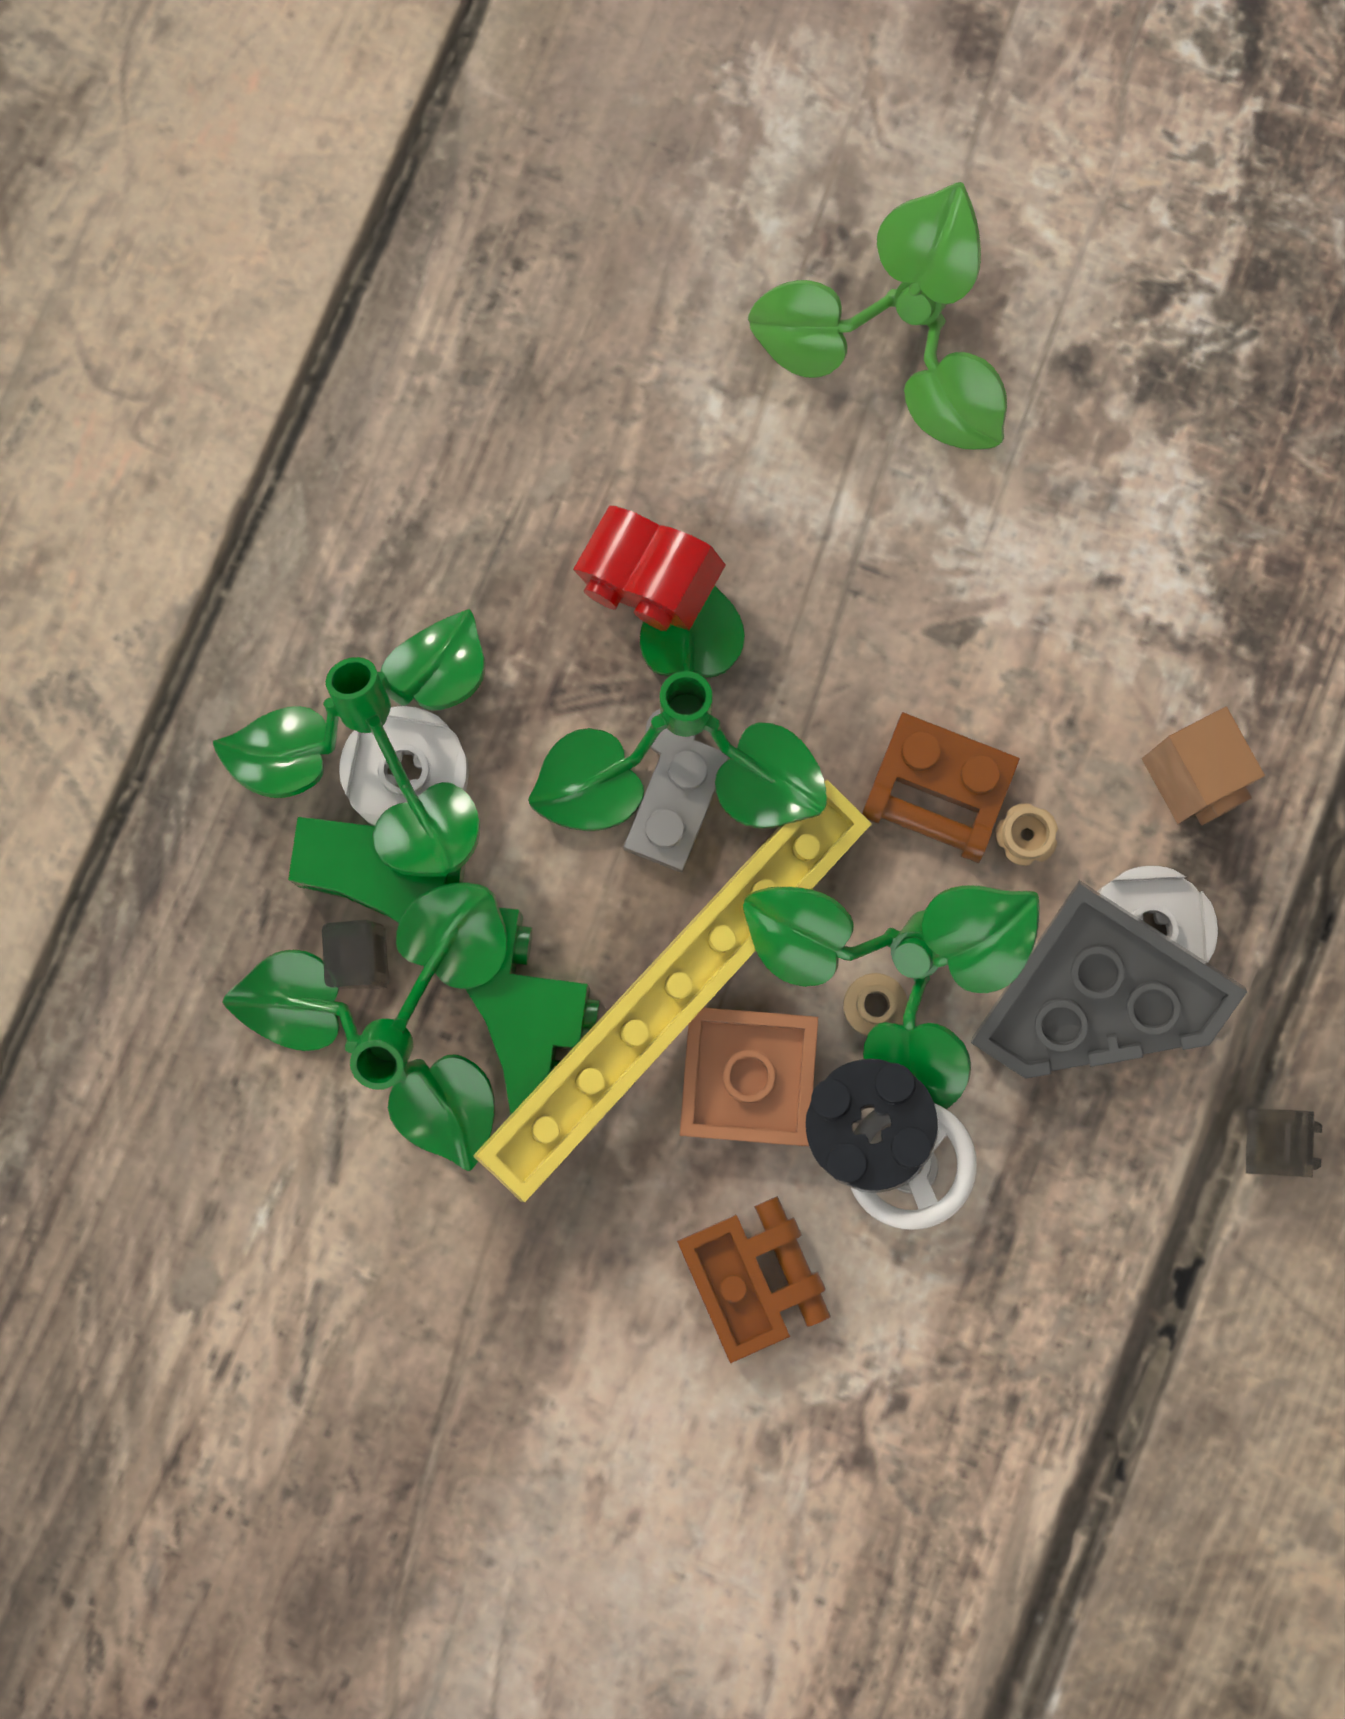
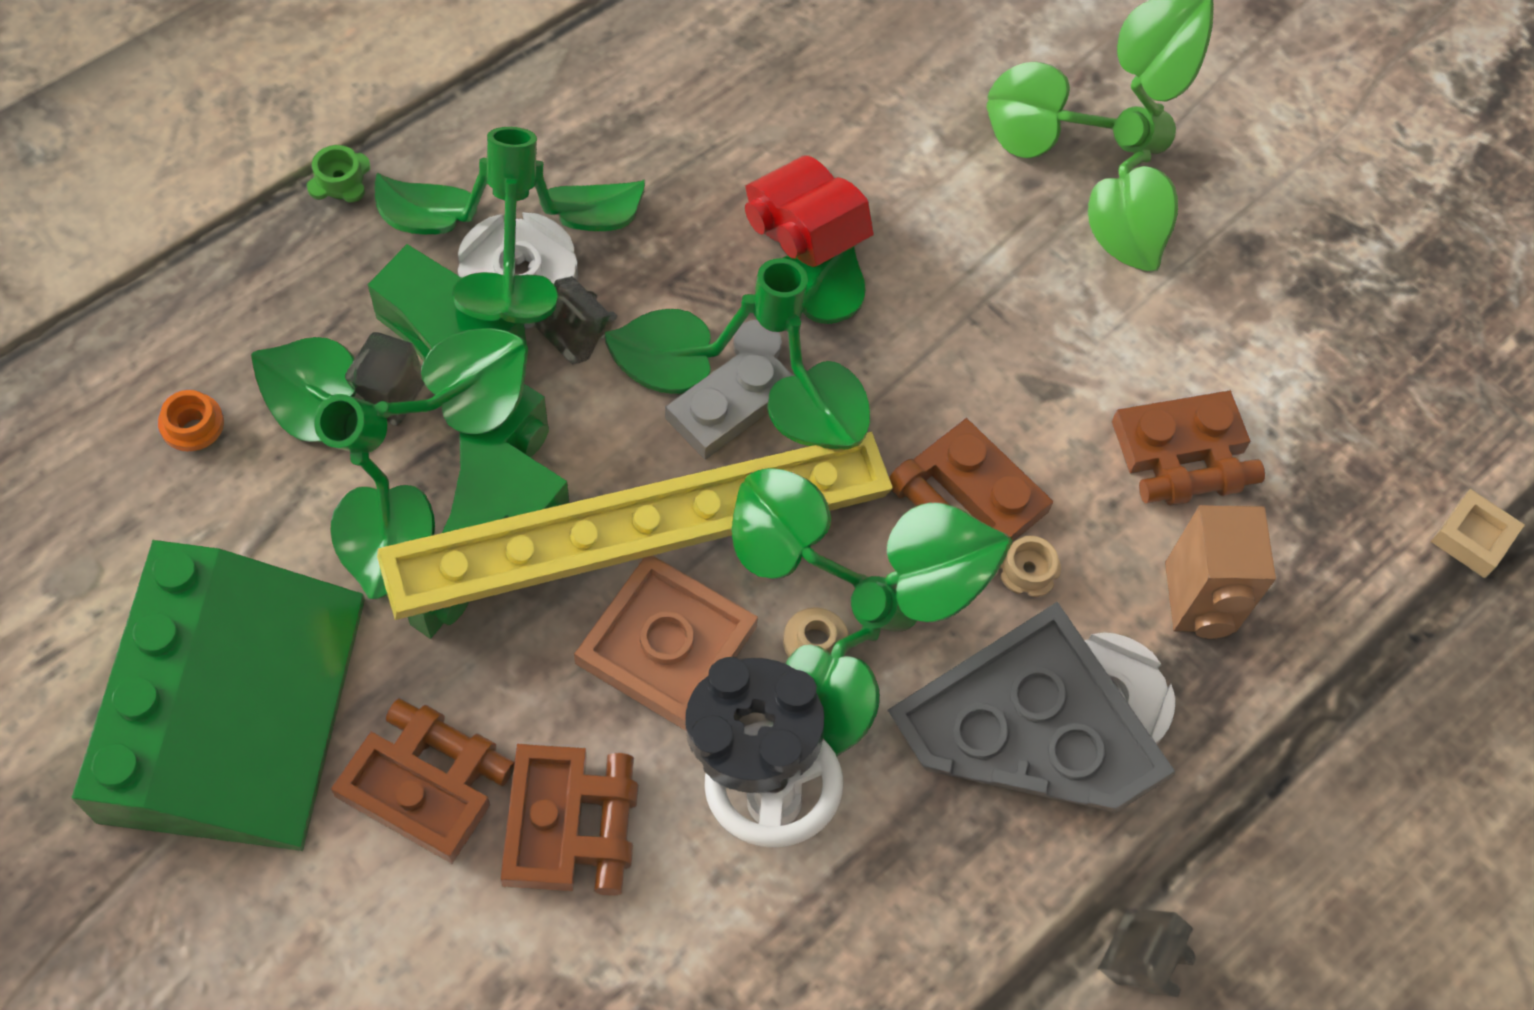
camera: 20 degrees right, 20 degrees down
(154, 751) = (335, 162): none -> bright green plate
(184, 1083) = (189, 406): none -> orange plate
(404, 1330) = (220, 700): none -> green slope
(496, 799) = (576, 321): none -> clear smoke tile
(614, 1328) = (414, 796): none -> dark orange plate
(1101, 618) = (1186, 432): none -> dark orange plate

